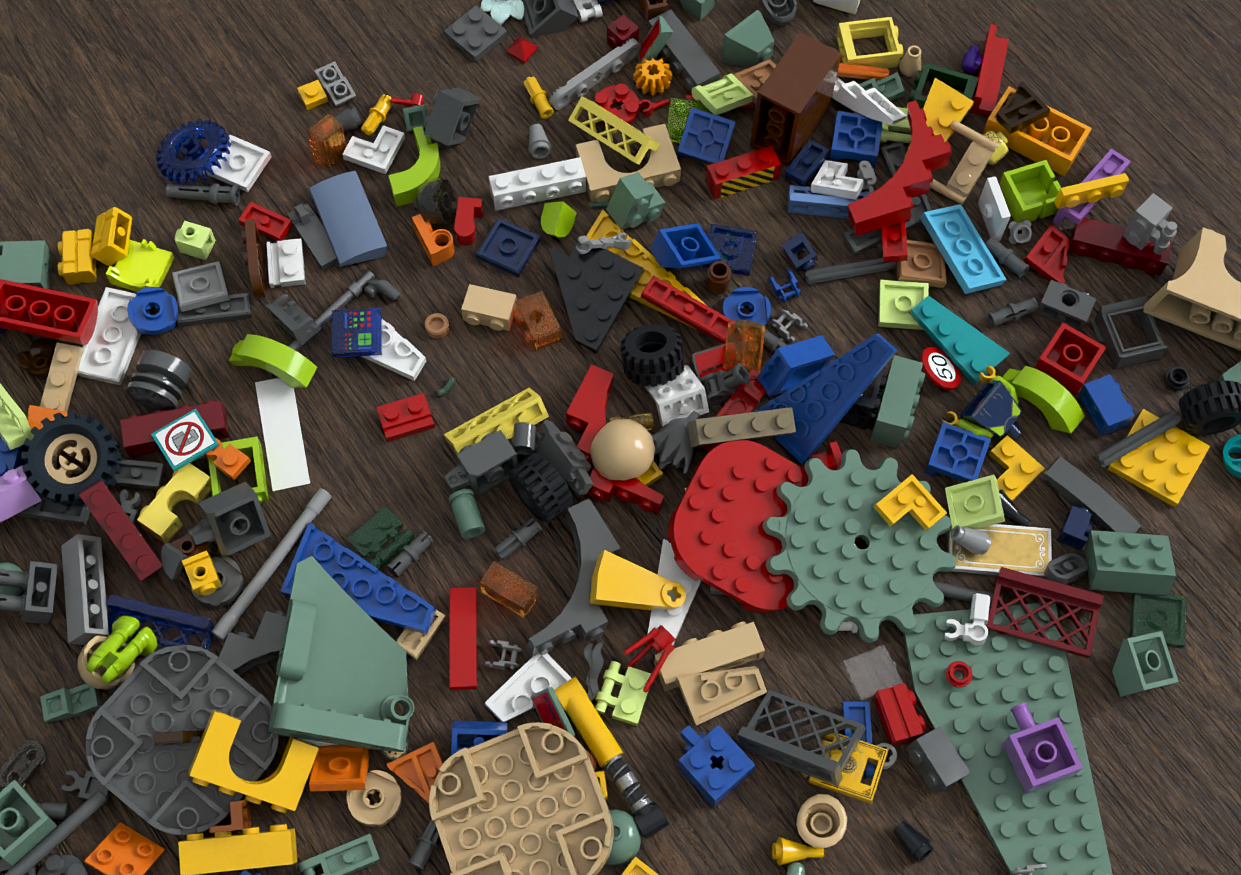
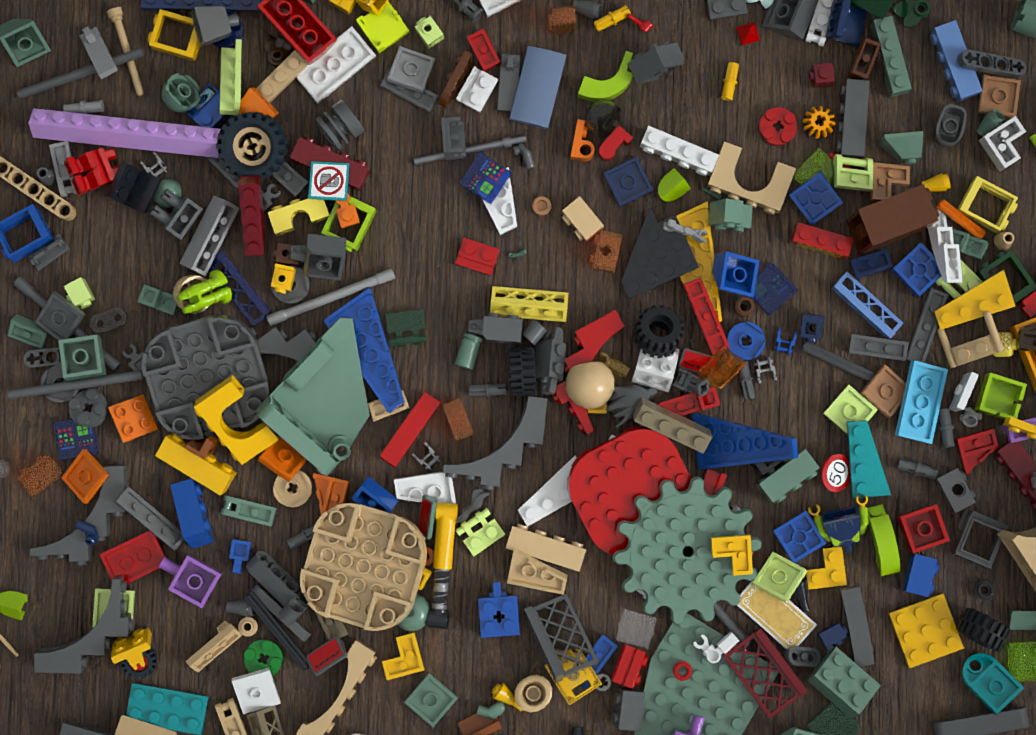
camera: 40 degrees right, 20 degrees up
(148, 323) = (378, 63): blue plate -> none
(172, 560) = (271, 256): dark grey tile -> none
(178, 737) = (202, 376): dark brown tile -> none
(275, 358) = (420, 160): lime arch -> none
(282, 434) = (395, 210): white sticker -> none
(375, 155) = (590, 50): white plate -> none
(409, 554) = (416, 351): dark grey pin -> none
(415, 117) = (636, 39): sand green slope -> none
(538, 142) = (703, 119): light grey cone -> none
(598, 71) = (799, 92): light grey piece -> none
(618, 124) = (761, 144): light yellow fence -> none
(631, 586) = (526, 471): yellow piece -> none
(651, 106) = (803, 144): red hand -> none
(655, 40) = (838, 98): sand green slope -> none
(658, 639) = (521, 520): red plant -> none
(794, 364) = (741, 407): blue window -> none
(833, 182) = (873, 292): white plate -> none
(867, 174) = (901, 303): light grey piece -> none
(893, 200) = (894, 340): red arch -> none
(895, 243) = (879, 365): red plate -> none
(972, 539) = (759, 598): light grey cone -> none
(1138, 439) = (922, 612): dark grey axle -> none

